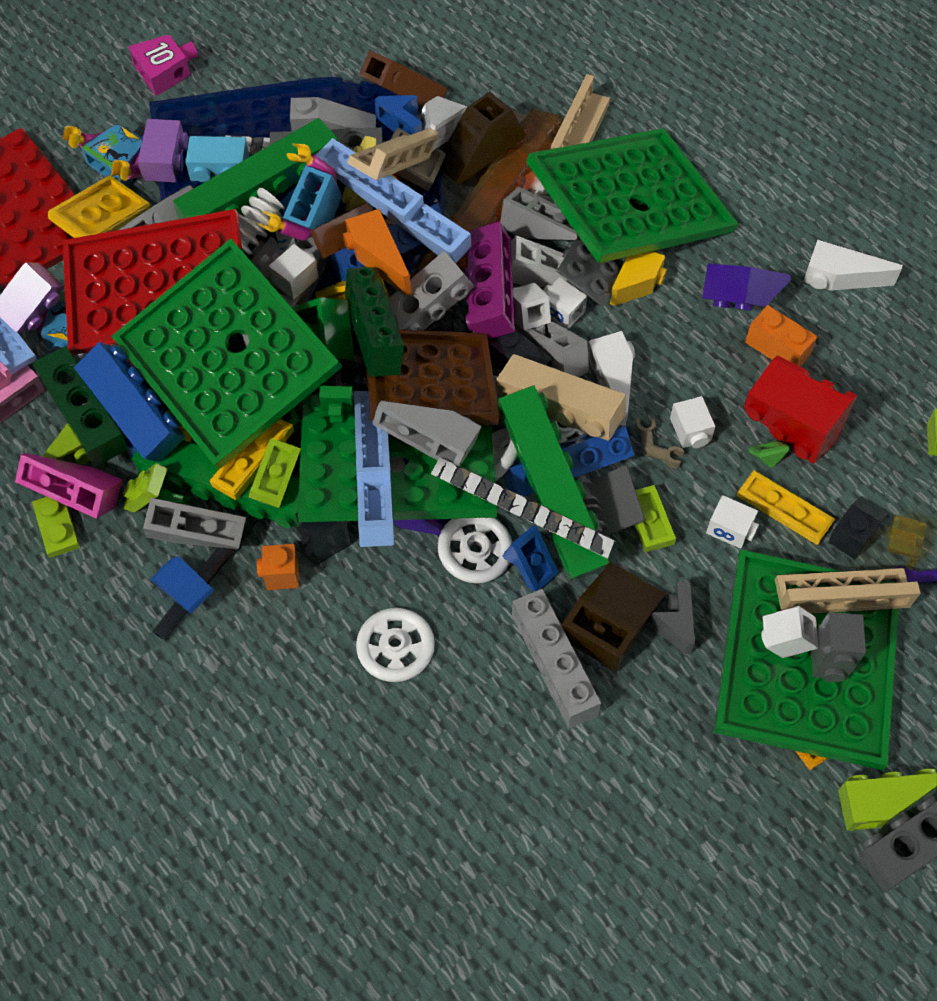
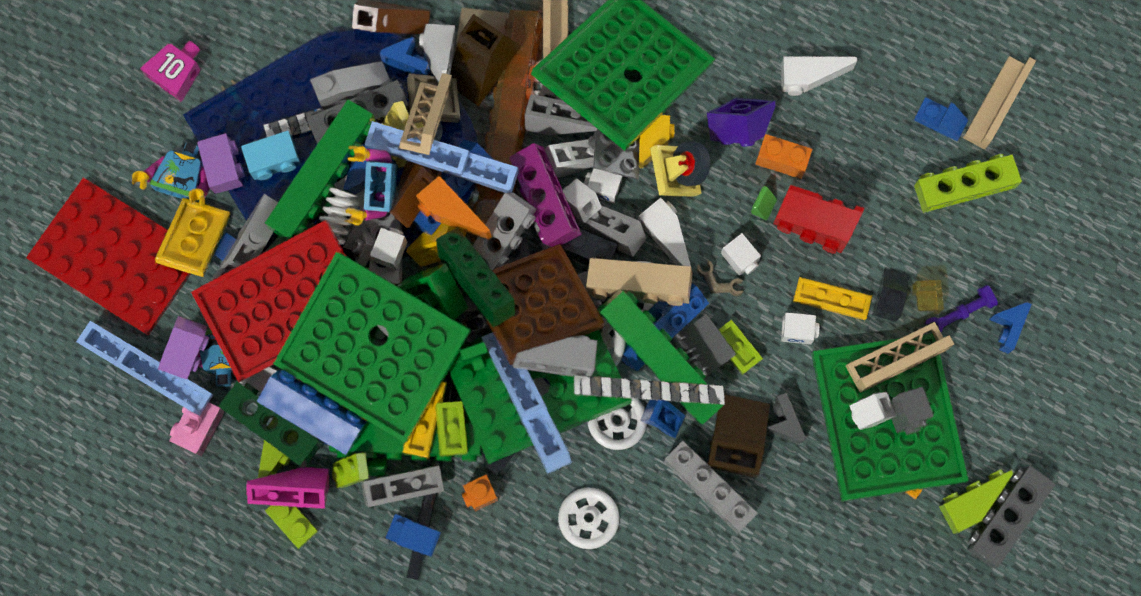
camera: 20 degrees left, 15 degrees up
(655, 310) = (680, 168): none -> plate
(739, 380) = (764, 203): none -> bright green slope
(770, 452) = (805, 256): bright green slope -> none

